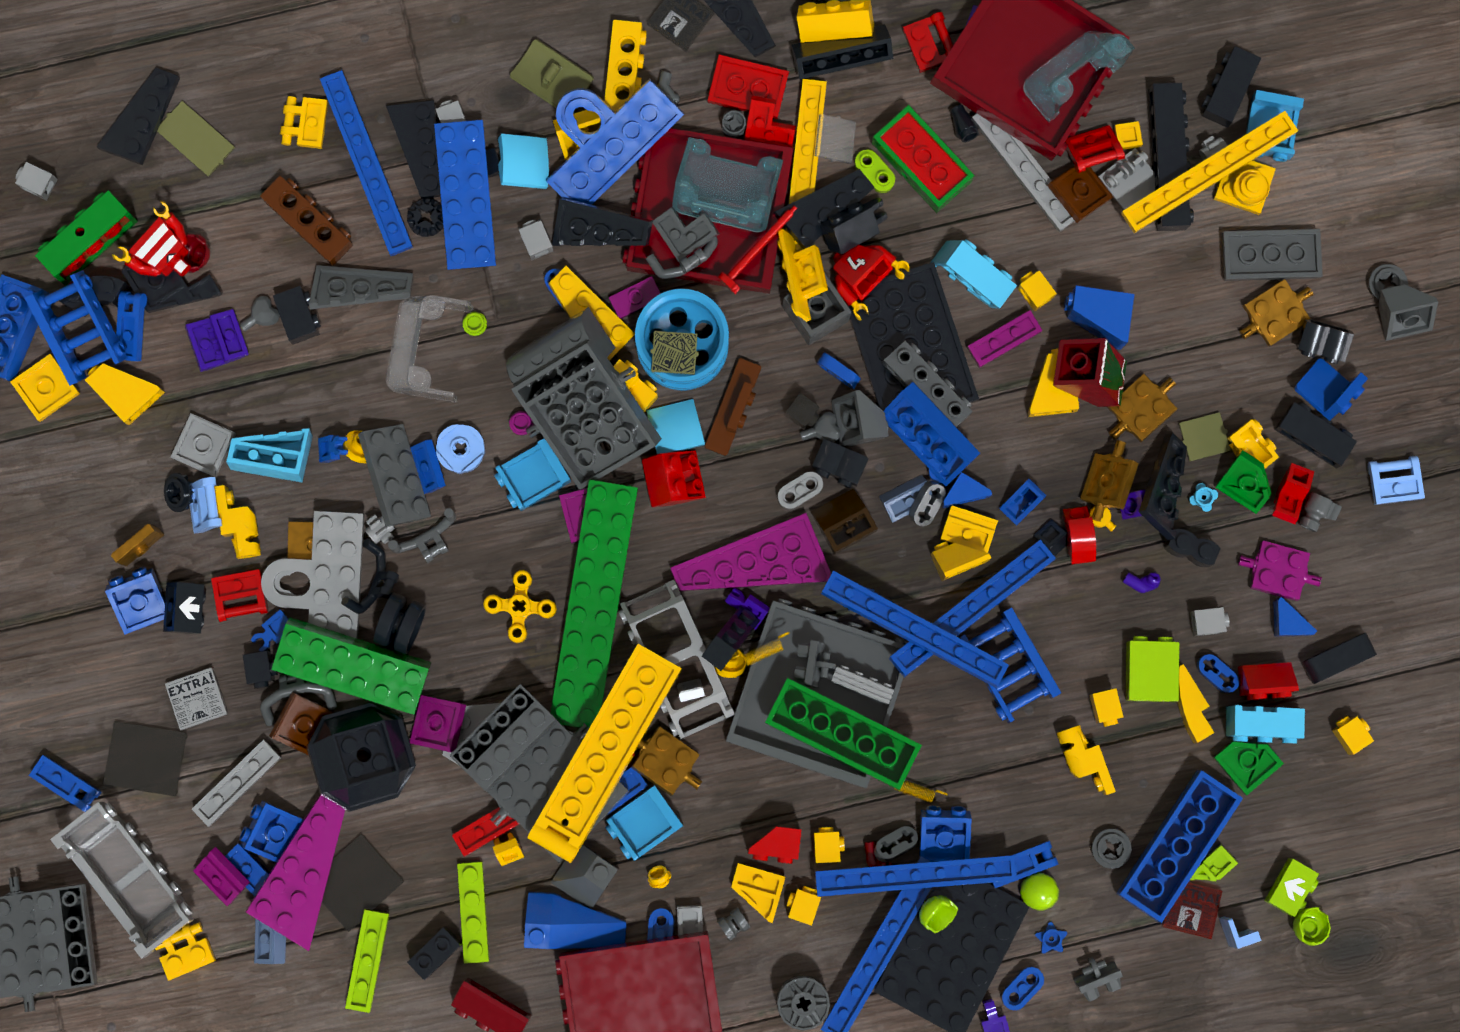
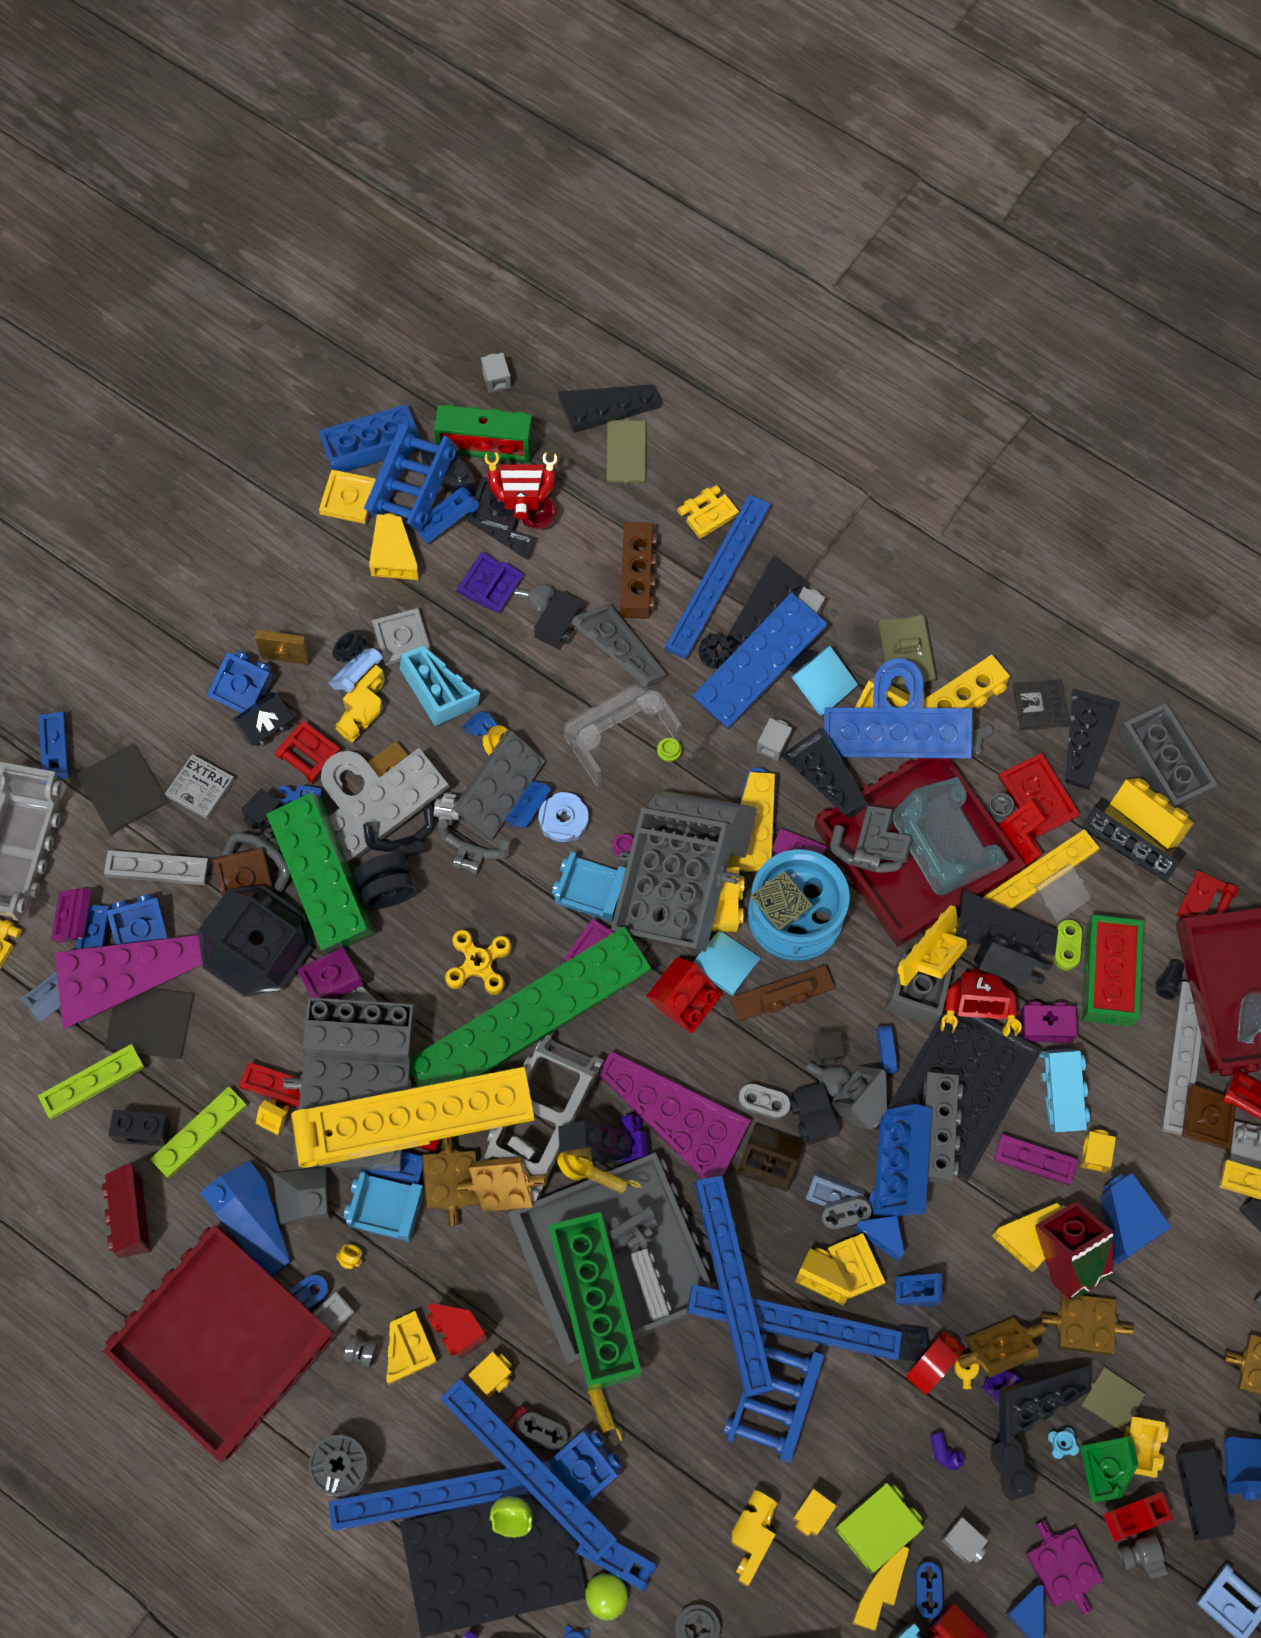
camera: 50 degrees right, 15 degrees down
(704, 729) = (502, 1184): none -> pearl gold plate
(728, 279) = (877, 899): red piece -> none
(803, 905) = (424, 1397): yellow brick -> none
(931, 234) = (1037, 1030): none -> magenta brick

